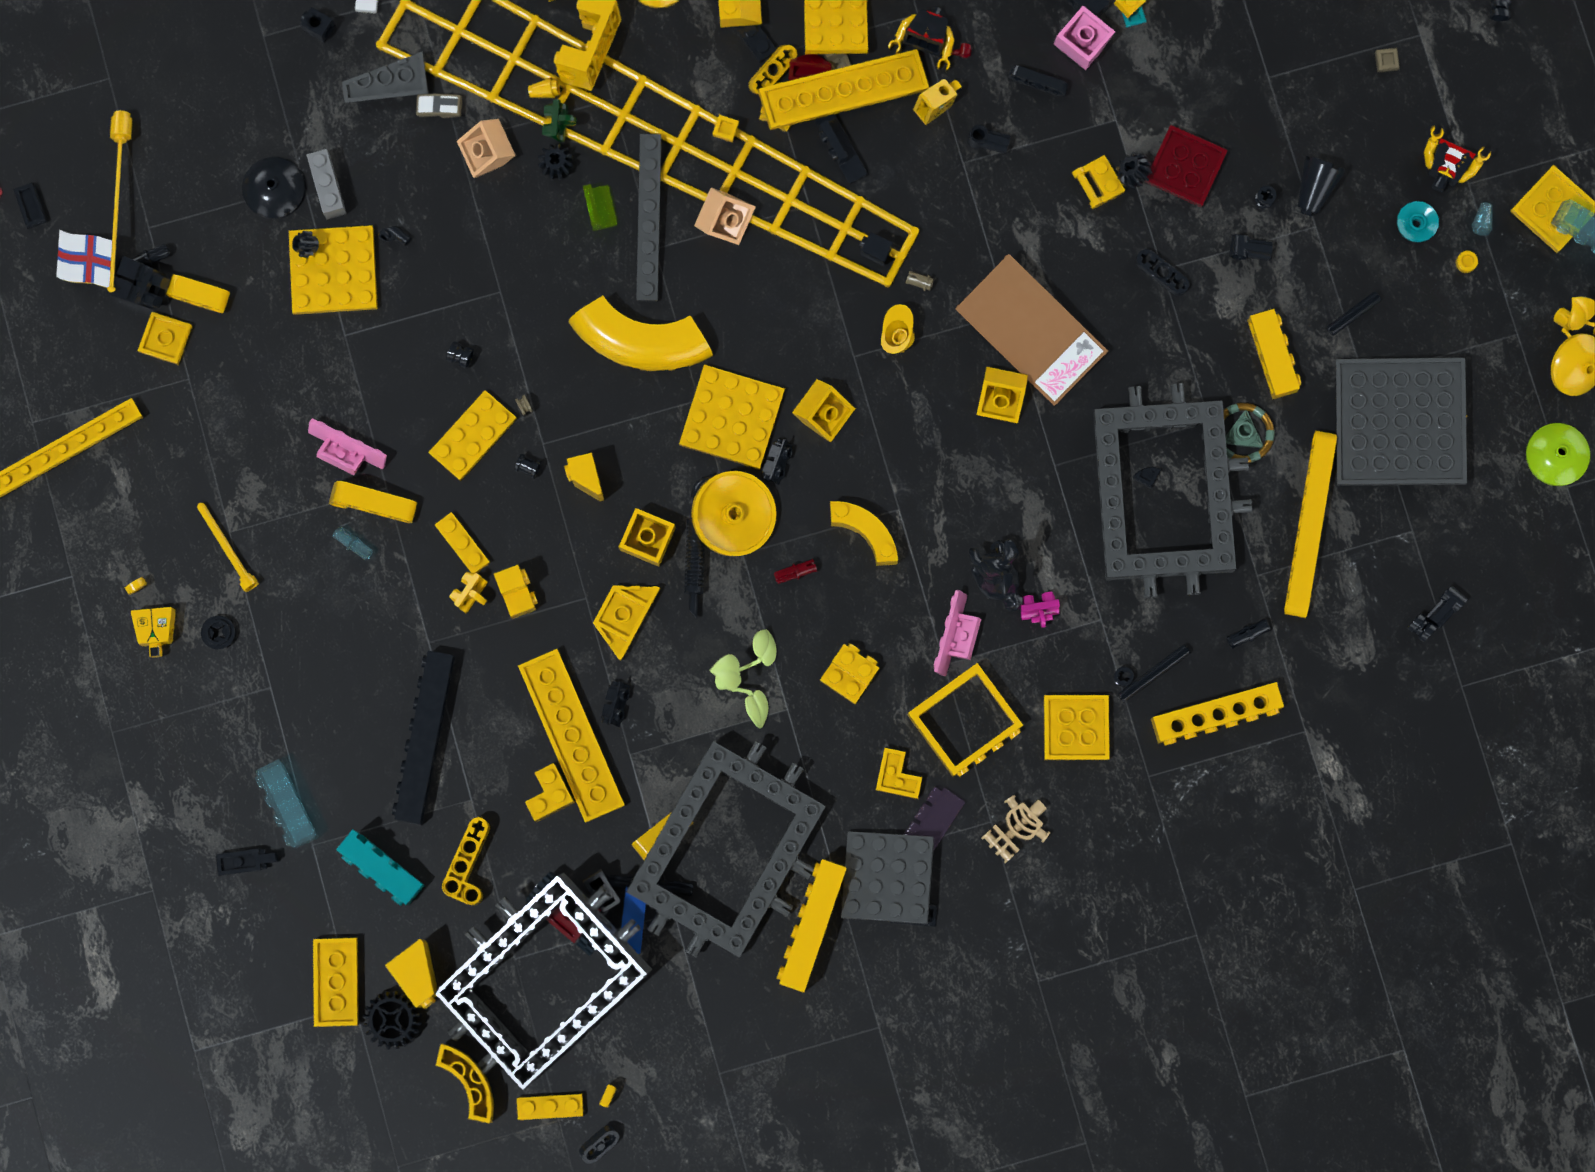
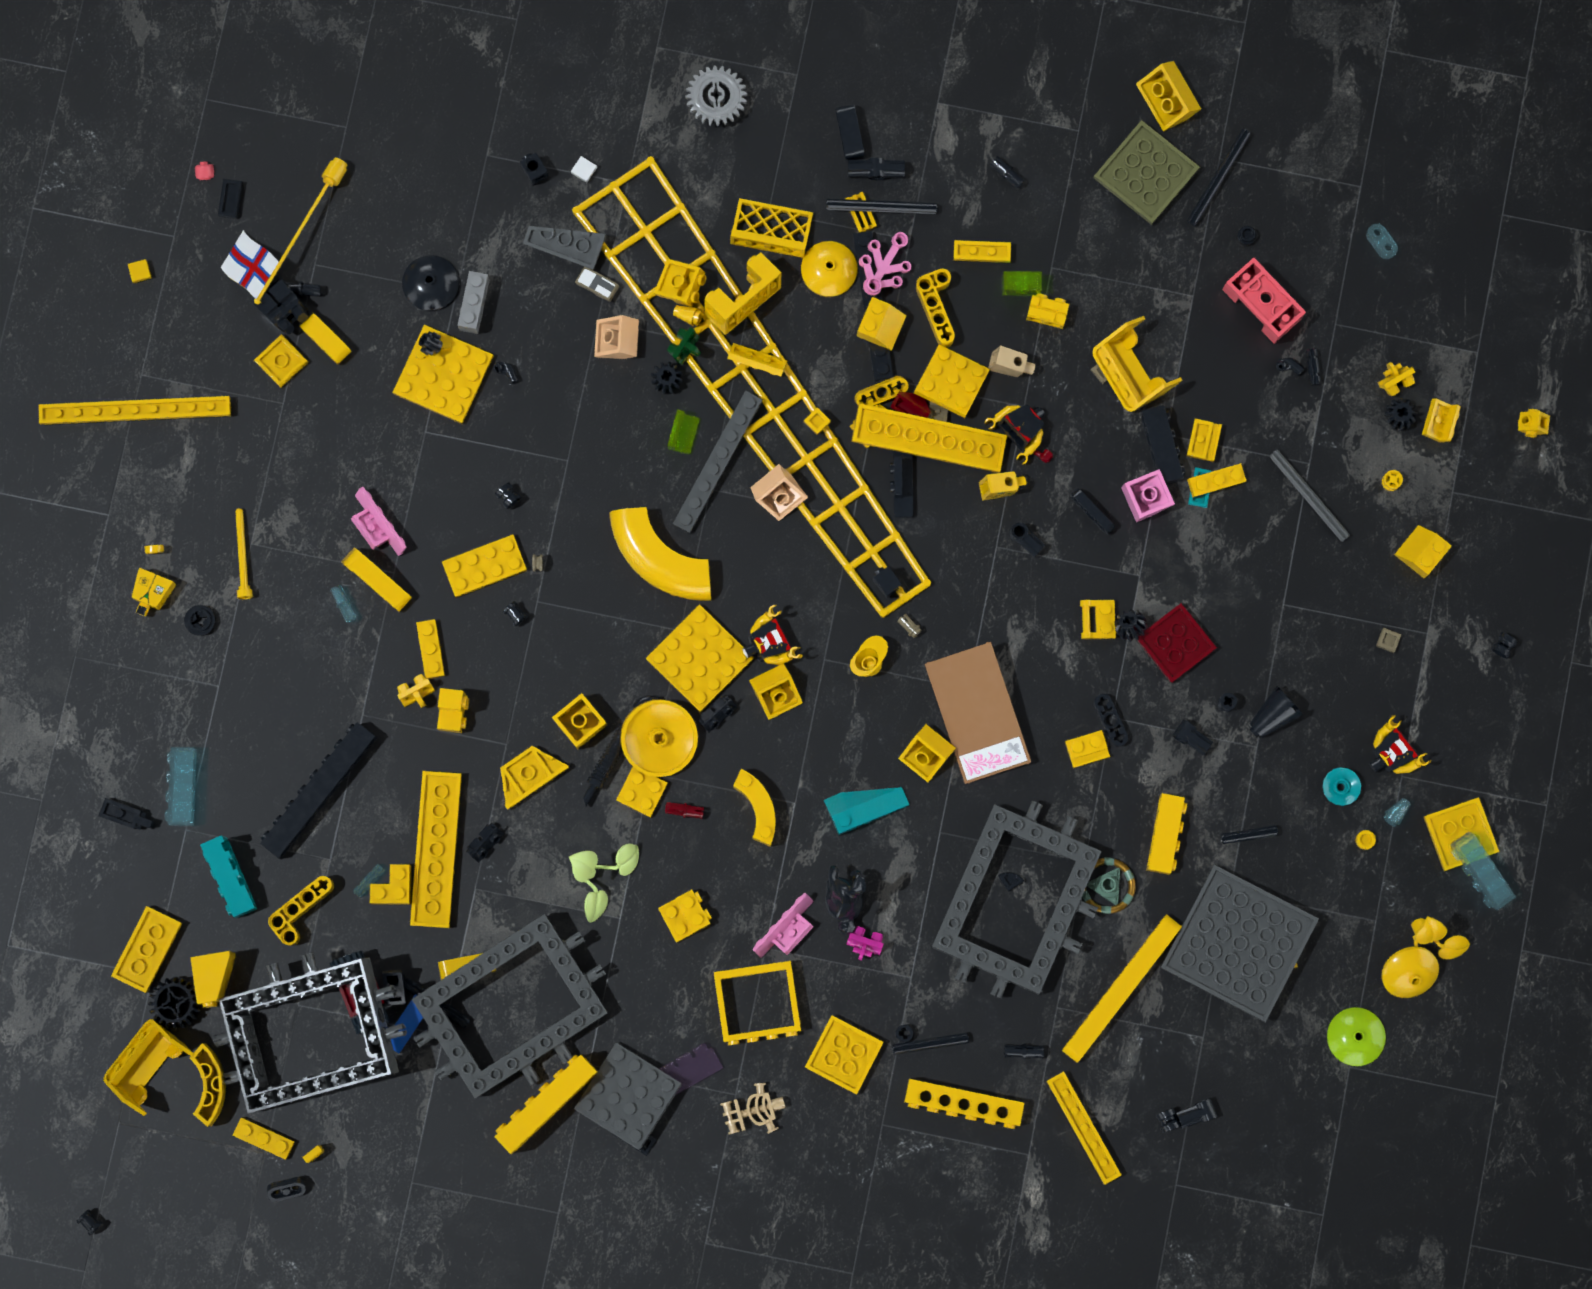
camera: 25 degrees right, 0 degrees up
(388, 1095) = (140, 1062): none -> yellow windscreen
(521, 61) = (680, 282): none -> yellow plate
(521, 797) = (370, 878): none -> clear light blue axle
(584, 475) = (556, 644): yellow slope -> none
(635, 98) = (757, 359): none -> yellow plate
(744, 575) = (641, 792): none -> yellow plate
(791, 364) = (769, 641): none -> torso
(892, 780) = (673, 1018): yellow plate -> none
(964, 481) = (858, 808): none -> teal wedge
(1154, 311) = (1087, 749): none -> yellow plate
(1345, 677) = (1083, 1128): none -> yellow plate

